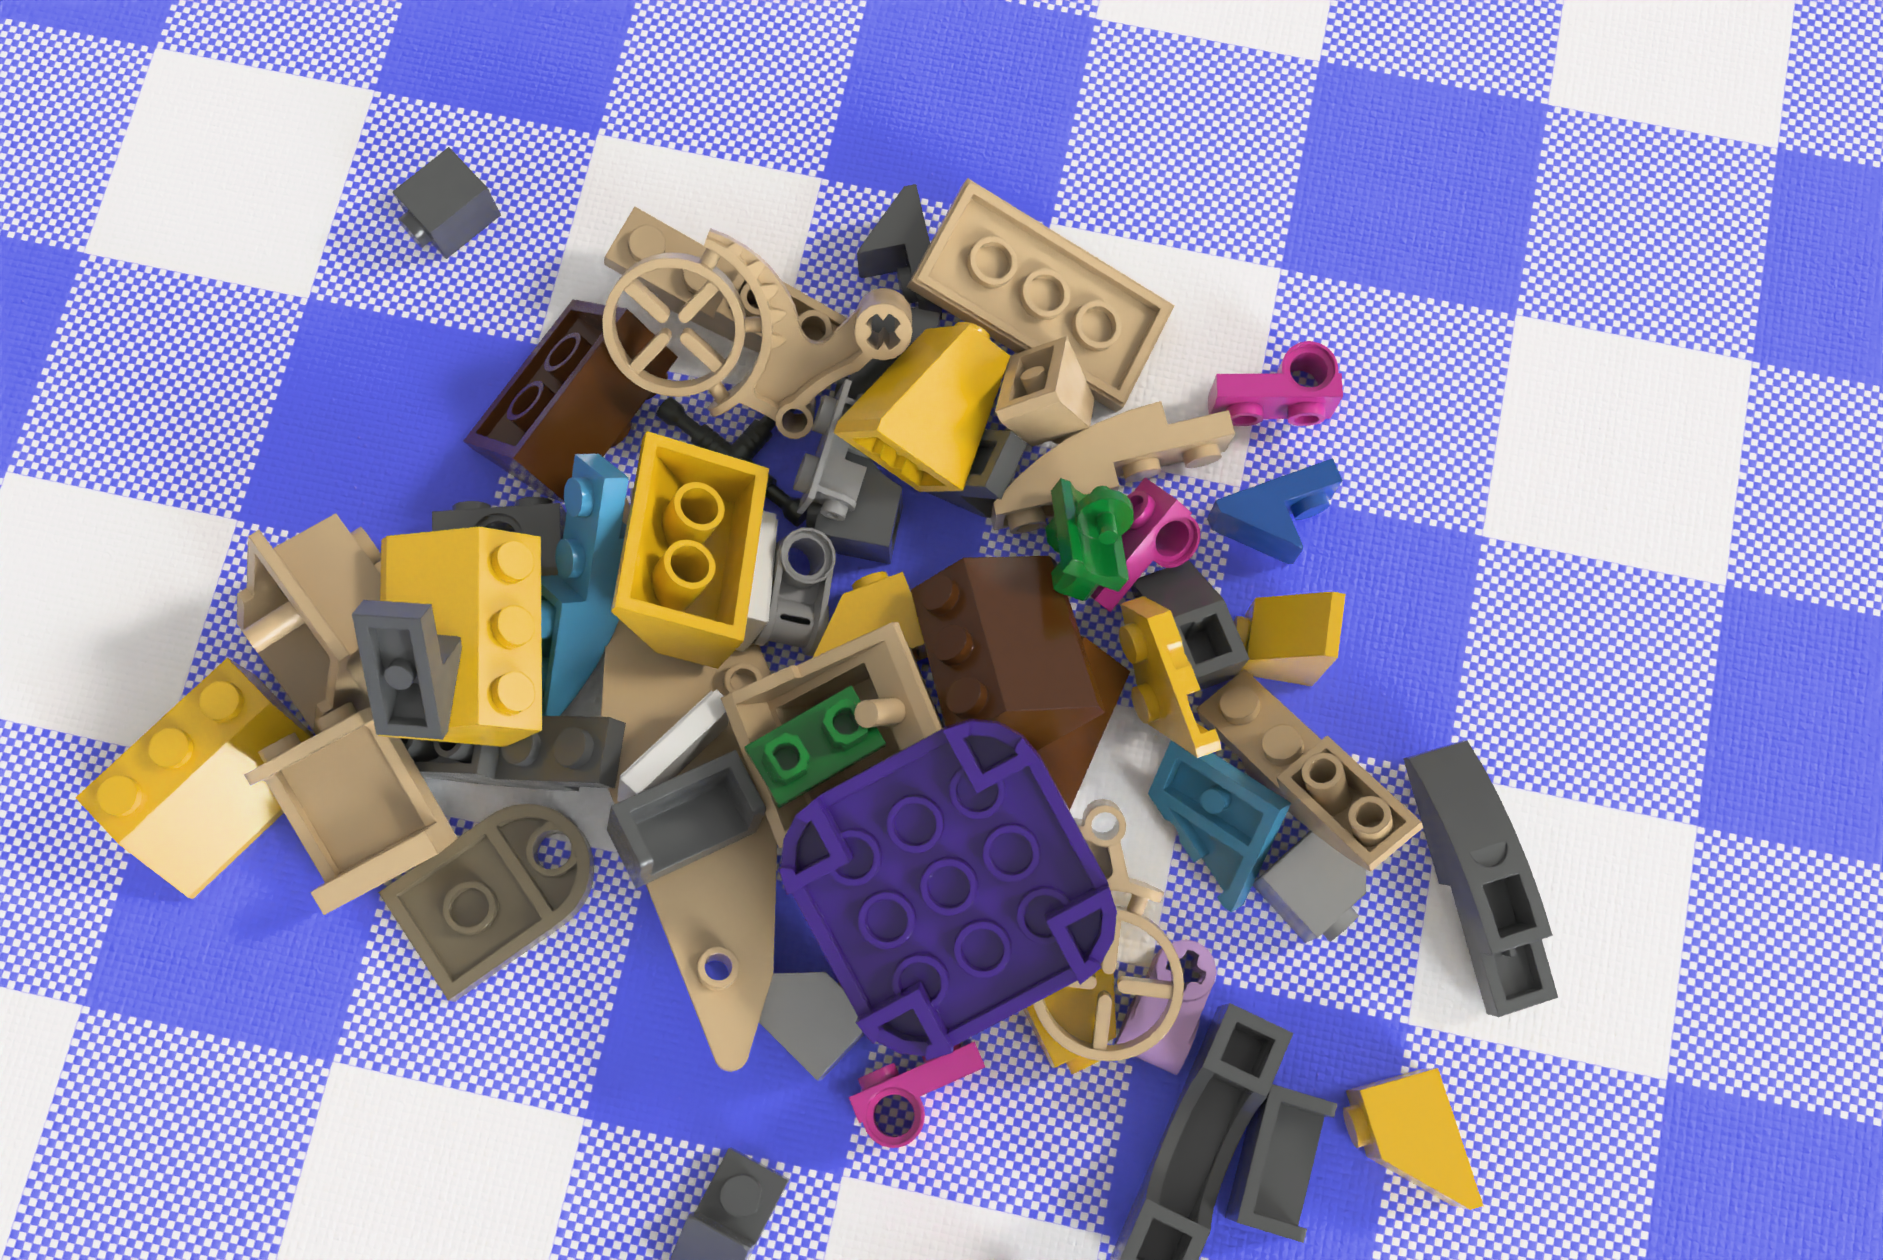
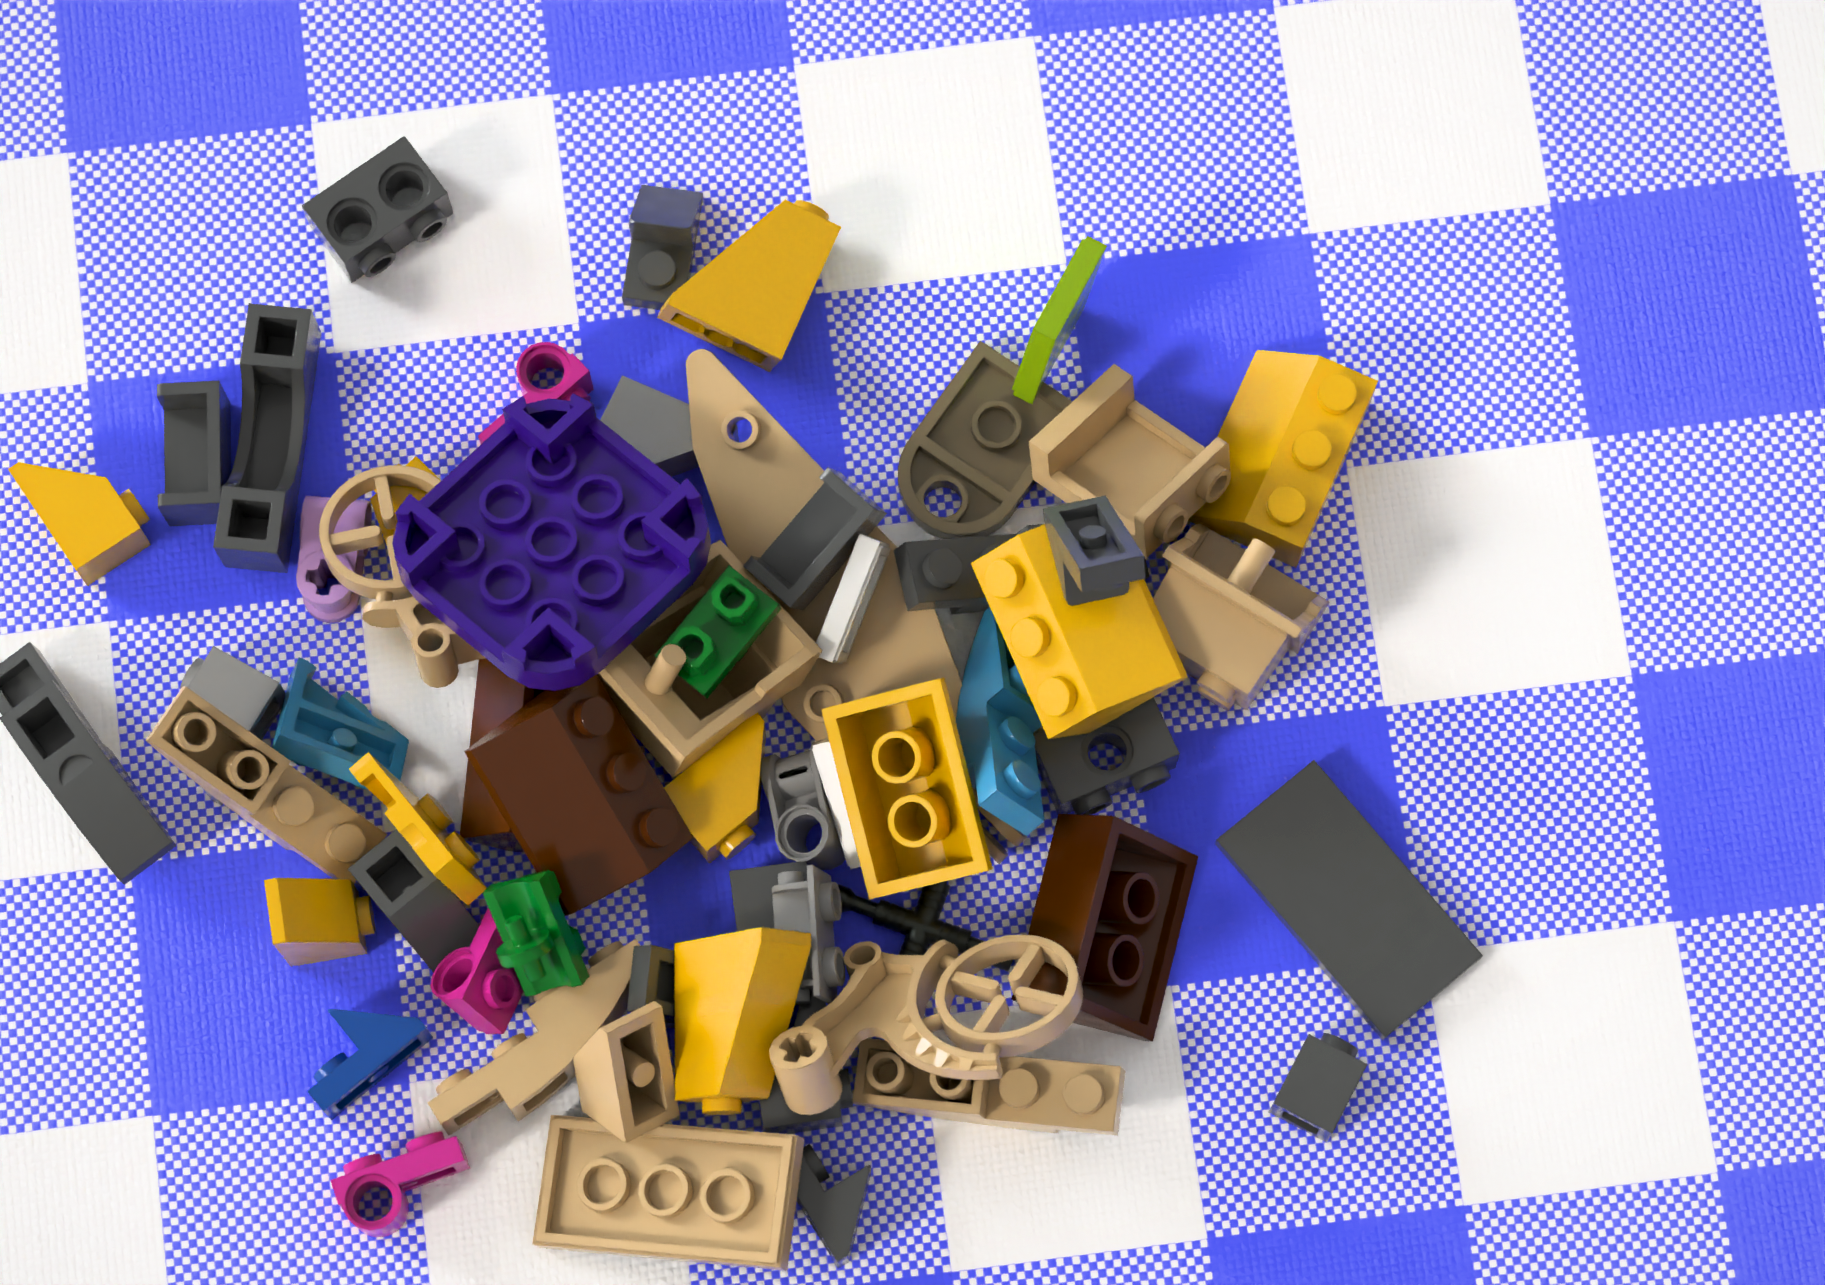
camera: 160 degrees right, 0 degrees up
(348, 359) = (1348, 900): none -> dark grey tile
(352, 974) = (1058, 319): none -> lime tile
(641, 1139) = (757, 285): none -> yellow slope

